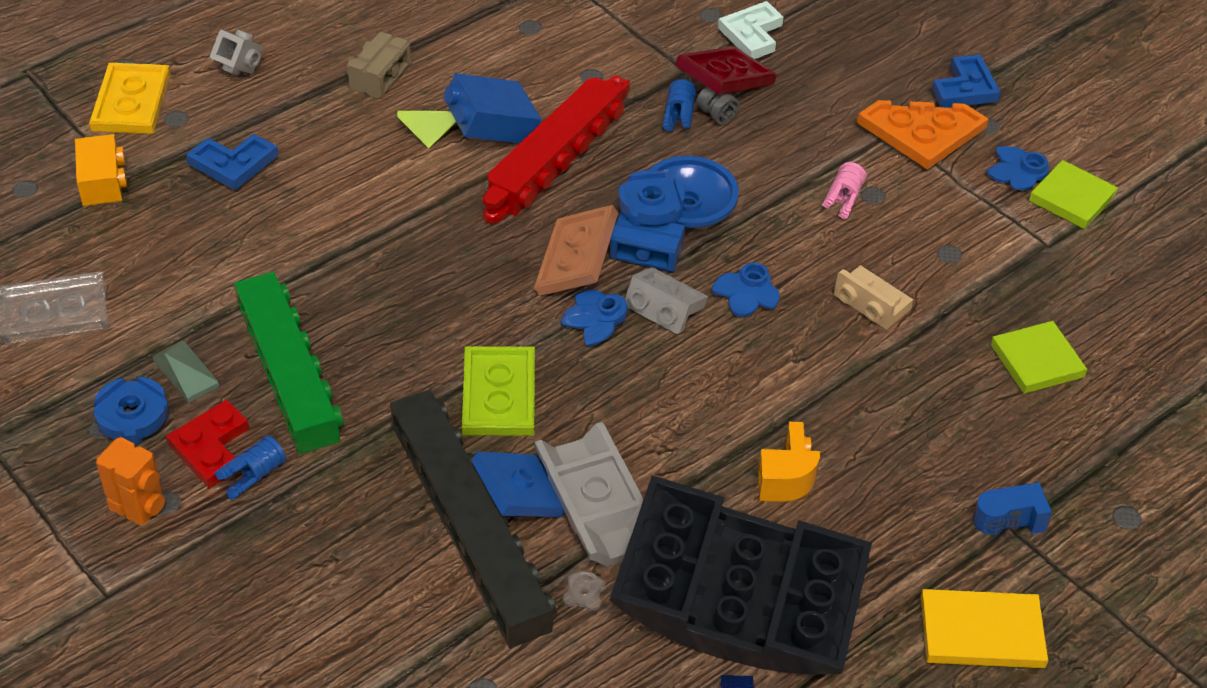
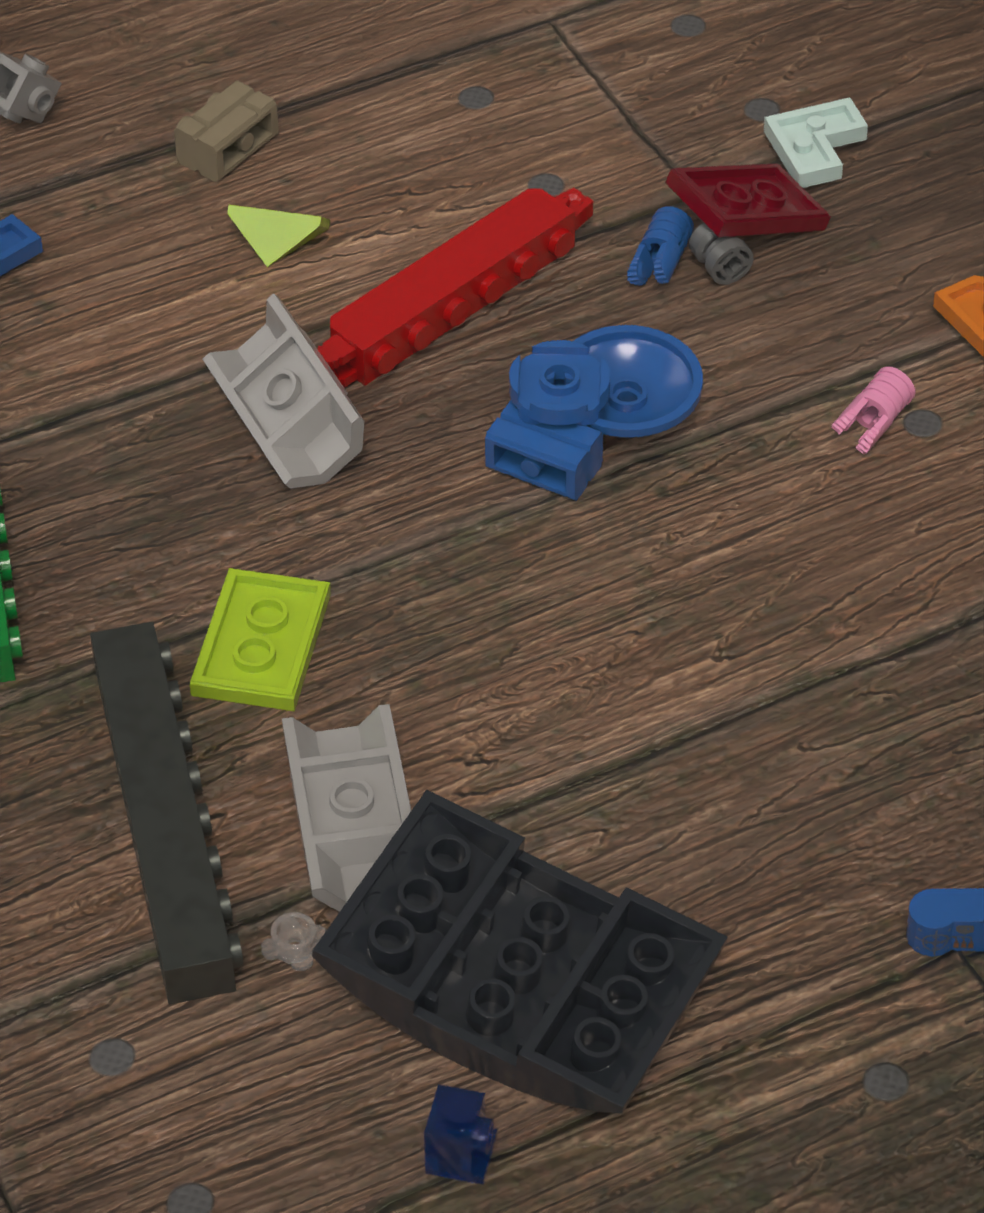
camera: 15 degrees right, 0 degrees up
(474, 230) = (290, 400): none -> light grey piece
(491, 108) = (366, 217): blue brick -> none
(517, 484) = (240, 775): blue plate -> none
(576, 250) = (431, 448): nougat tile -> none
(595, 315) = (435, 548): blue plate -> none
(663, 299) = (542, 537): light grey bracket -> none
(747, 289) = (675, 541): blue plate -> none
(788, 472) = (645, 819): light orange brick -> none
(872, 296) = (864, 577): tan bracket -> none
(983, 628) = (863, 1087): yellow tile -> none

